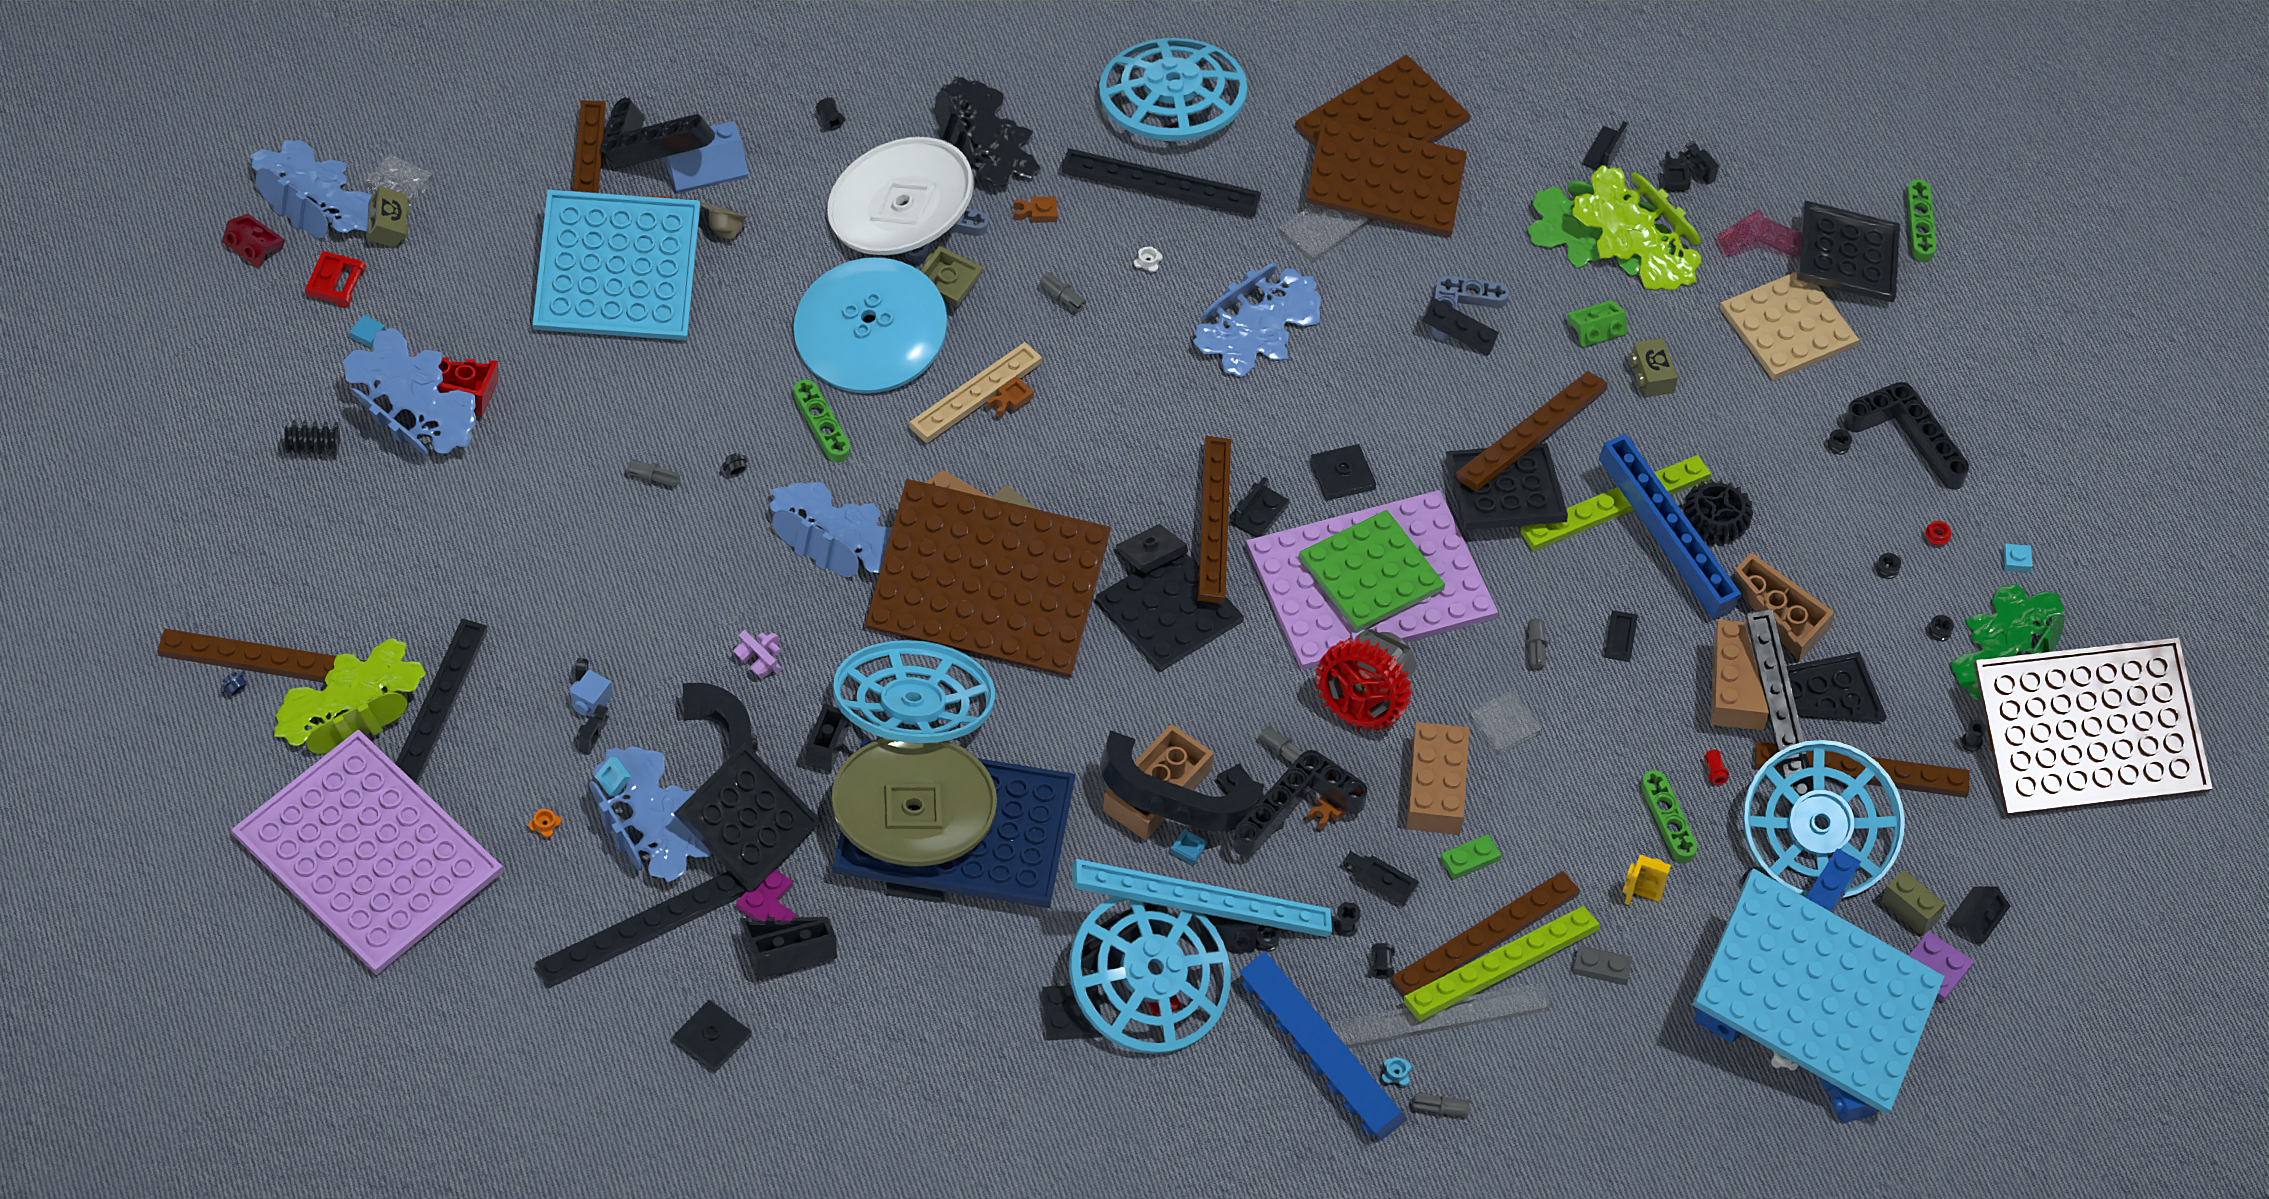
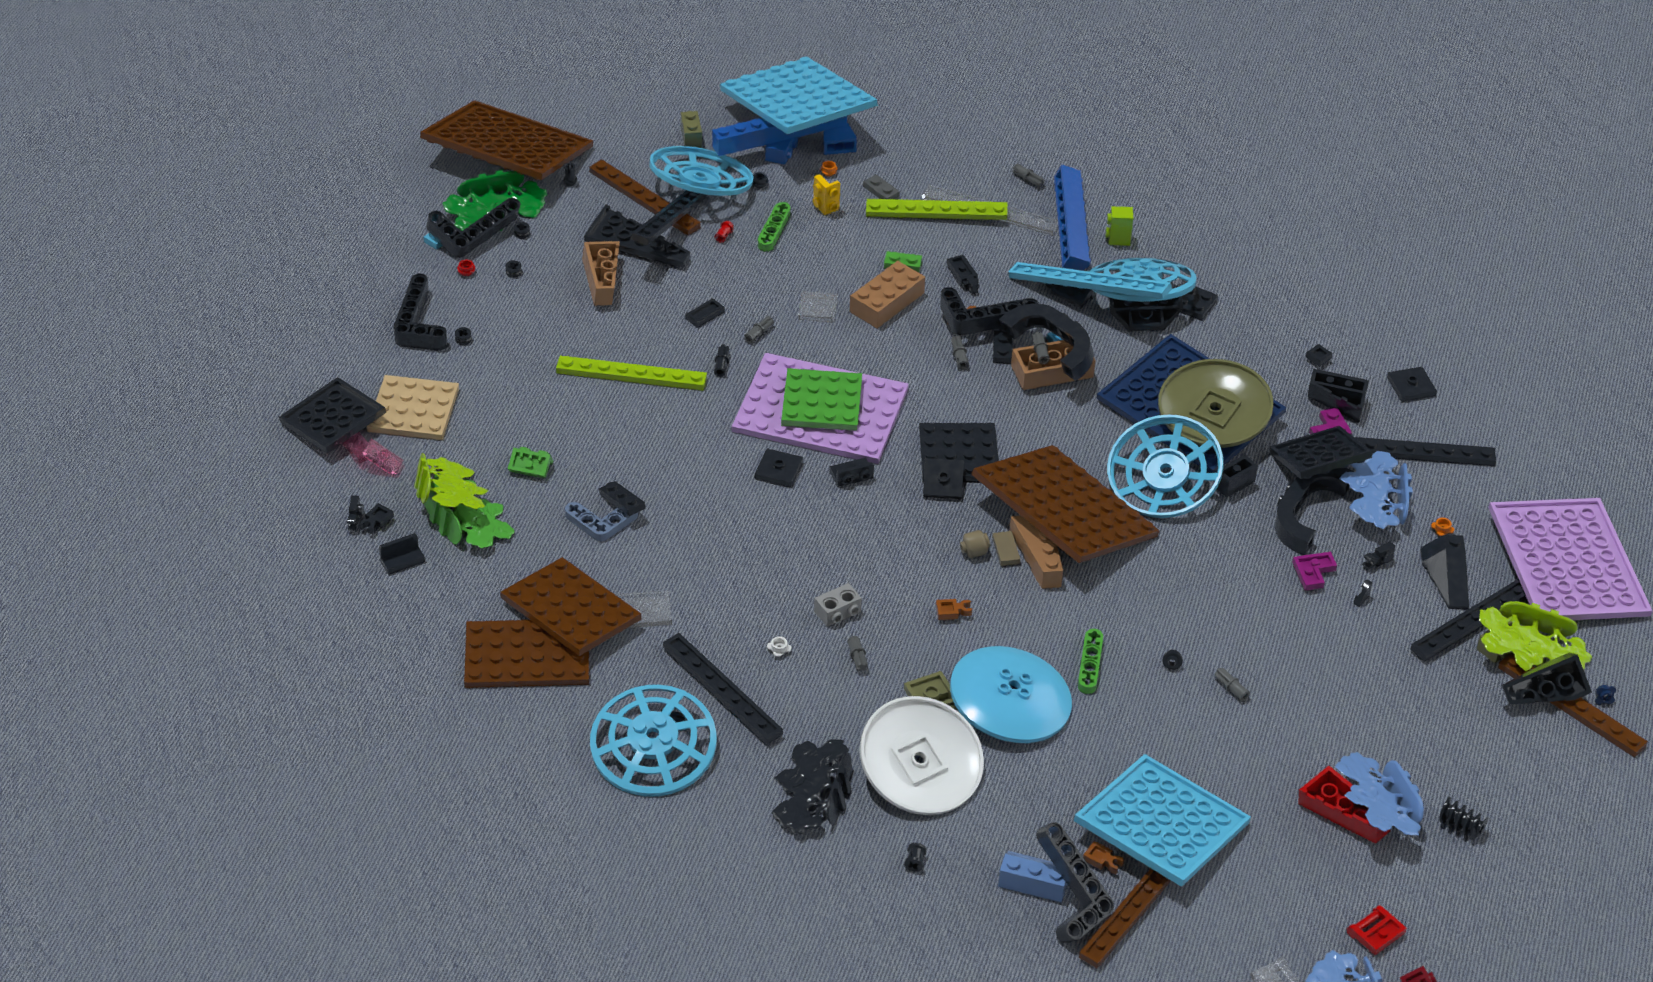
camera: 140 degrees left, 10 degrees down
(299, 651) = (1550, 682): none -> black wedge
(365, 330) = (1374, 882): dark azure tile -> none
(387, 217) = (1311, 947): olive brick -> none
(505, 764) = (1448, 569): none -> black wedge
(590, 692) = (1367, 570): medium blue brick -> none
(613, 776) = (1392, 502): medium azure plate -> none
(663, 670) = (1310, 569): none -> magenta plate
(724, 221) = (1054, 809): dark tan piece -> none
(765, 663) = (1240, 546): lavender hips -> none
(844, 529) = (1128, 588): medium blue plant -> none
(854, 1007) = (1319, 355): none -> black plate
(974, 392) = (973, 623): tan plate -> none
(1040, 209) = (821, 717): dark orange plate -> none
(1048, 483) = (975, 543): none -> dark tan head
(1128, 332) = (837, 604): none -> light grey brick
(1178, 761) = (1041, 348): none -> dark grey axle
(1214, 520) = (889, 472): reddish brown plate -> none
(1247, 1058) = (1120, 225): none -> lime brick
(1259, 325) = (745, 577): medium blue plant -> none
(1347, 919) = (1000, 263): black bush -> none
(1367, 679) = (883, 337): red piece -> none
(1382, 960) = (1001, 239): black bush -> none
(1399, 1065) = (1038, 197): medium azure plate -> none
(1487, 934) = (931, 228): reddish brown plate -> none
(1516, 497) = (692, 401): black plate -> none
(1531, 431) = (643, 421): reddish brown plate -> none
(1535, 574) = (721, 360): none -> black axle
(1653, 367) = (527, 420): olive brick -> none
(1669, 526) = (624, 329): blue brick -> none
(1696, 949) = (828, 168): none -> orange plate
(1729, 521) = (580, 334): black gear -> none
(1736, 685) = (675, 246): medium nougat wedge -> none
(1921, 220) = (243, 430): bright green beam -> none
(1944, 960) = (709, 109): medium lavender plate -> none
(1978, 553) = (477, 229): none -> black beam
(1980, 912) = (660, 116): black panel -> none

